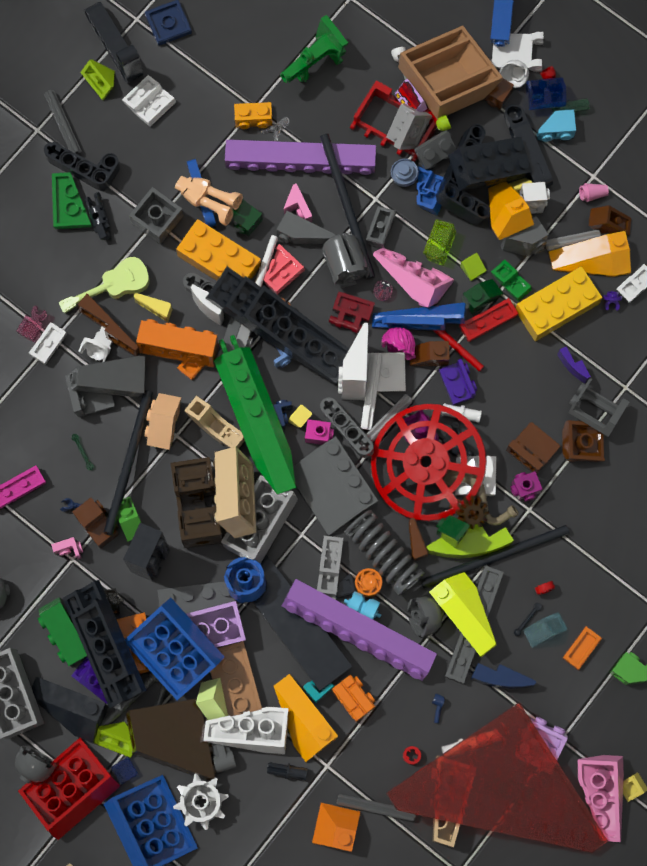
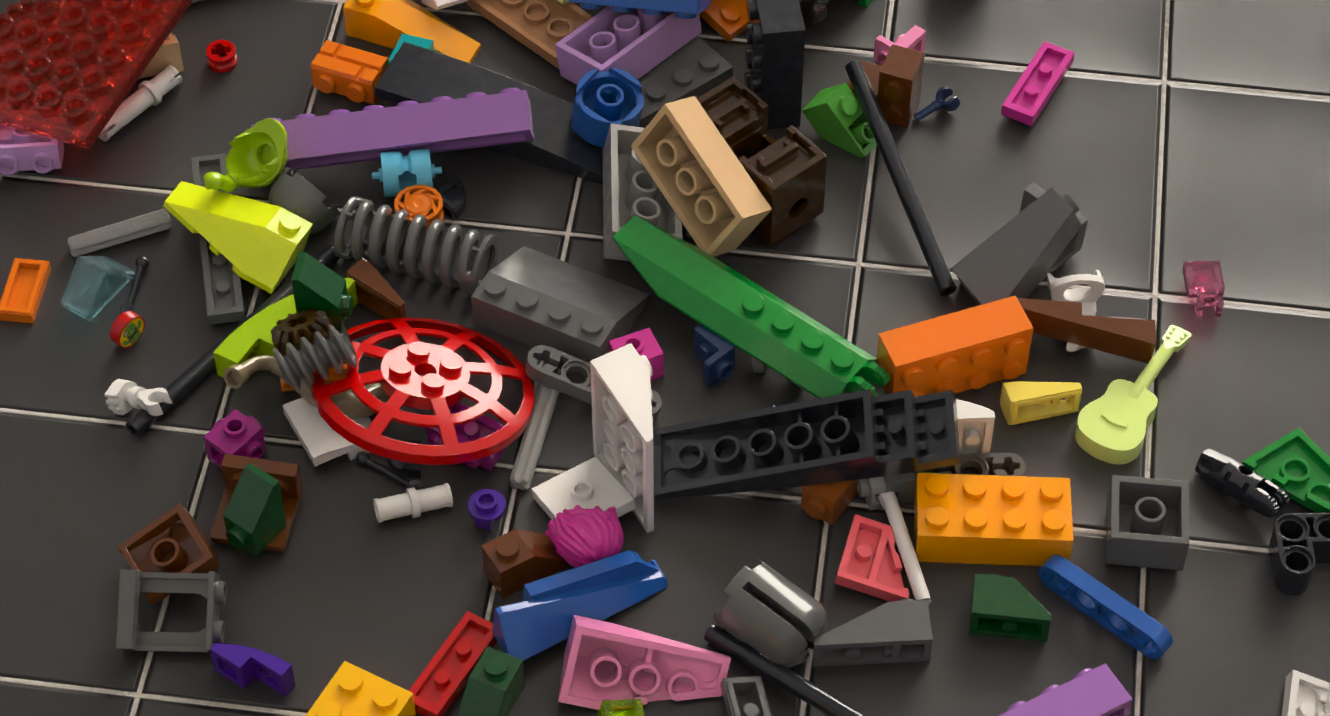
camera: 150 degrees right, 25 degrees down
(48, 343) = (1157, 274): white plate -> none
(89, 465) = (958, 165): clear green hinge -> none
(162, 421) = (894, 251): light nougat brick -> none
(197, 190) = (1106, 578): light nougat piece -> none
(214, 424) = (813, 288): tan arch -> none
(296, 202) = (926, 679): bright pink slope -> none
(299, 416) = (682, 363): light yellow slope -> none
(330, 566) = (489, 196): light grey slope -> none
(351, 306) = (705, 566): dark red plate -> none
(371, 392) = (587, 450): white axle -> none
(383, 290) = (675, 622): clear pink tile -> none
(431, 388) = (486, 507): none -> dark purple plate
(439, 701) = (218, 129): dark blue hand -> none
(441, 642) = (254, 158): none -> lime piece
(458, 348) = (461, 597): red bar -> none
(458, 382) = (446, 545): dark purple bracket -> none
(477, 483) = (316, 357): none -> dark grey piece
(501, 678) = (130, 191): dark blue slope -> none
(520, 658) = (119, 232): none -> light grey axle
(539, 433) = (254, 511): none -> dark green slope
(562, 548) = (125, 395): none -> white piece

